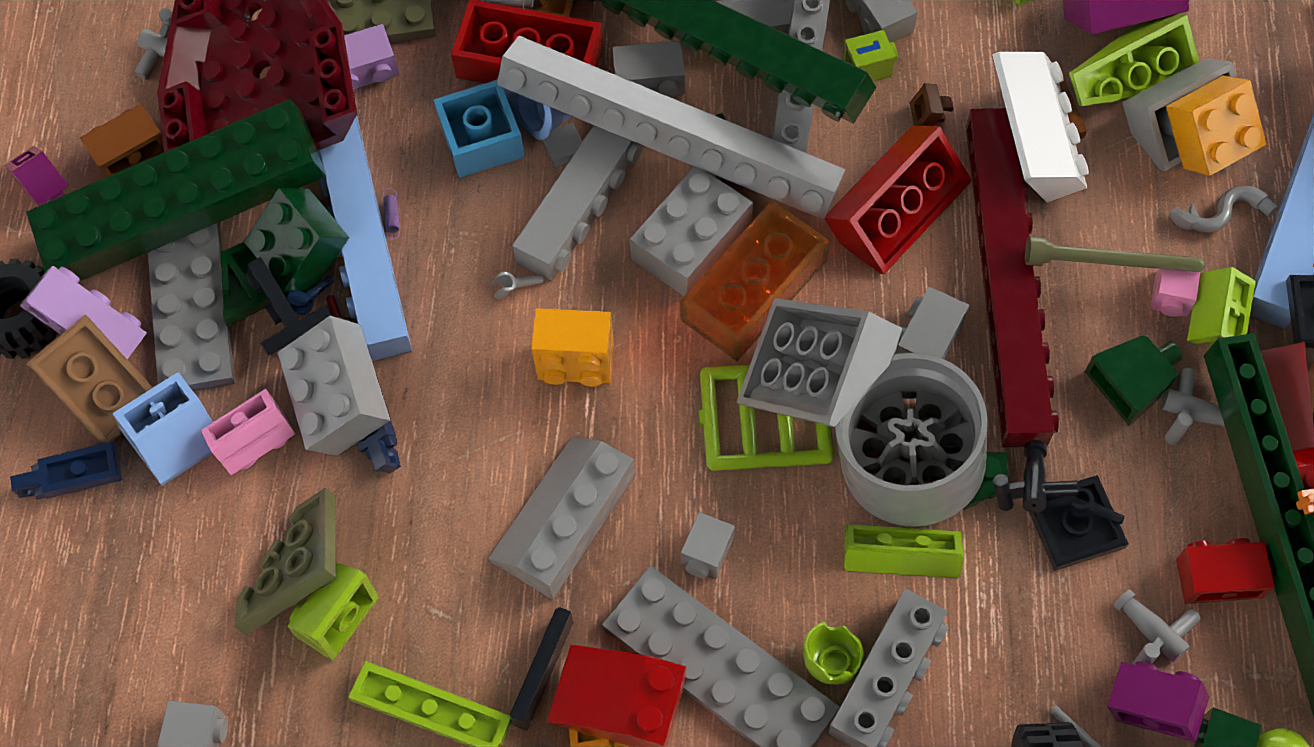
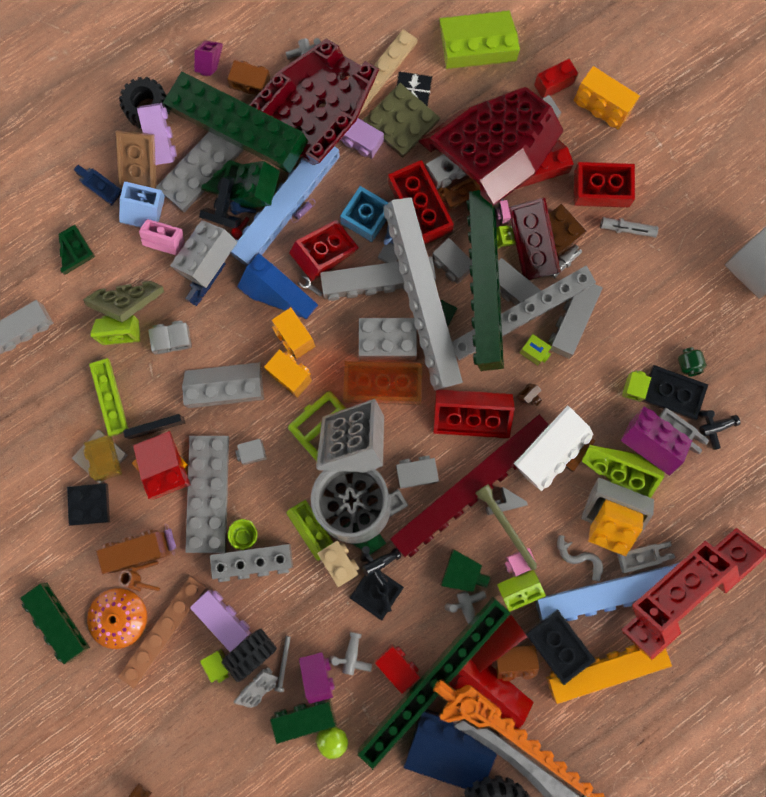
camera: 50 degrees right, 15 degrees up
(137, 587) = (73, 249): none -> dark green wing
(417, 539) = (170, 338): none -> light grey brick
(469, 332) = (269, 285): none -> blue wedge
(477, 226) = (323, 249): none -> red slope
(631, 396) = (288, 372): none -> light orange brick
(991, 537) = (338, 563): none -> tan bracket
(1071, 233) = (510, 500): none -> light grey slope
(1282, 129) = (644, 557): none -> light grey hinge

